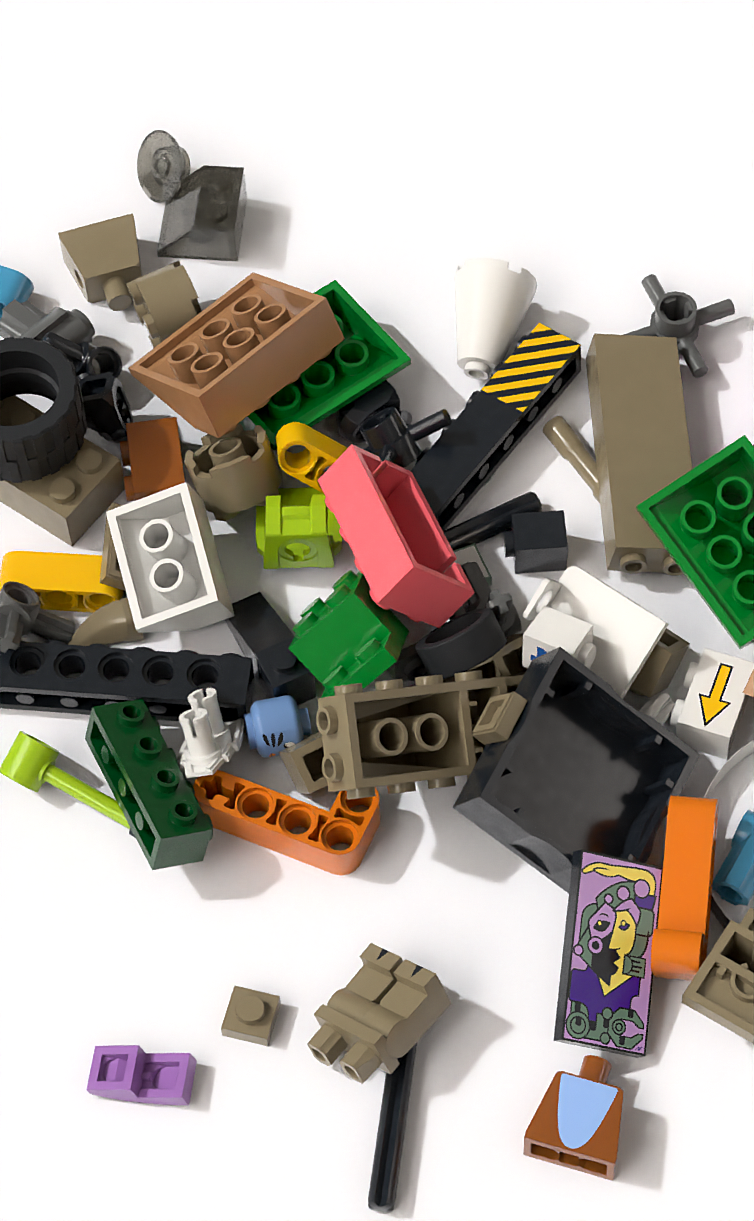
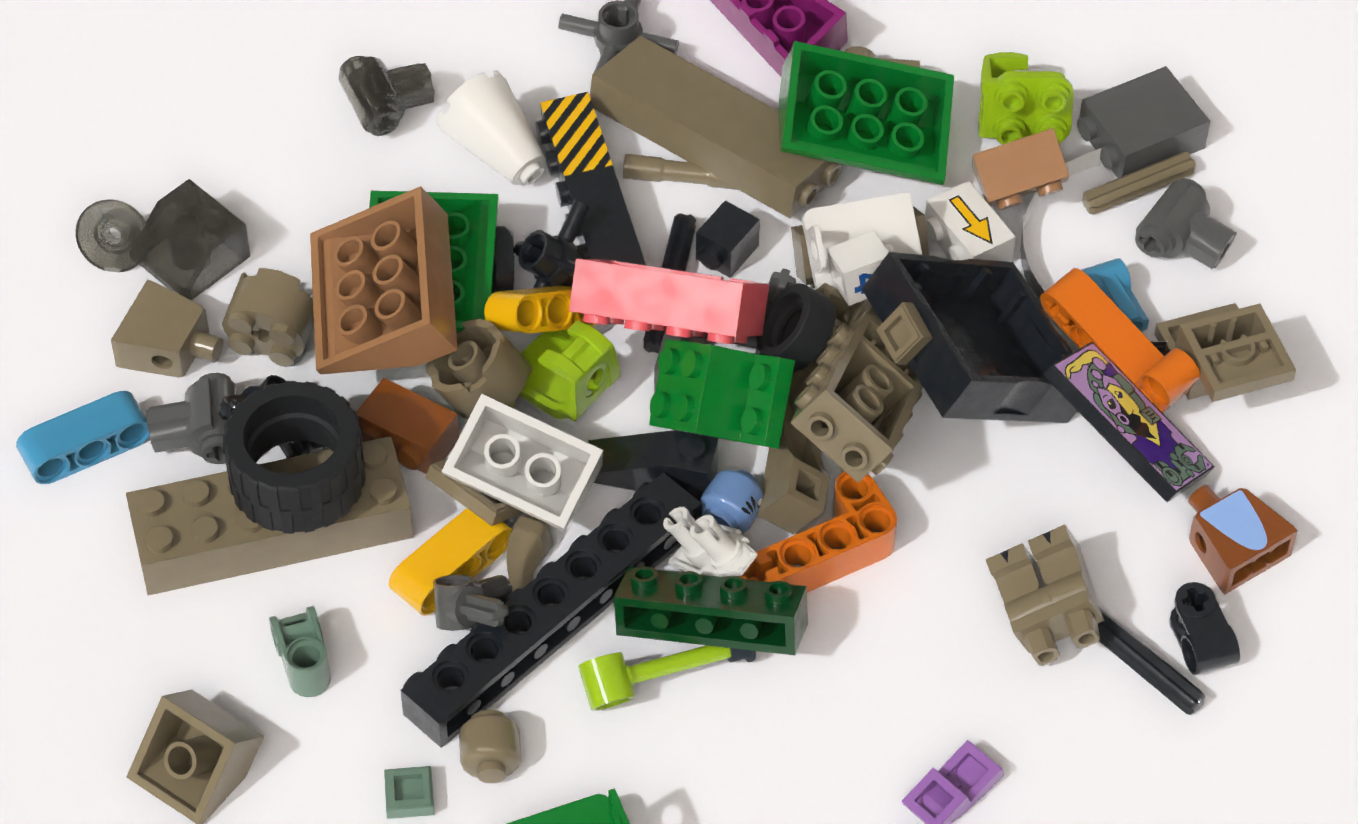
camera: 55 degrees left, 5 degrees down
(251, 1015) = (964, 685): dark tan plate -> none
(450, 1166) = (1202, 630): none -> black piece
(457, 221) = (383, 94): none -> clear smoke piece

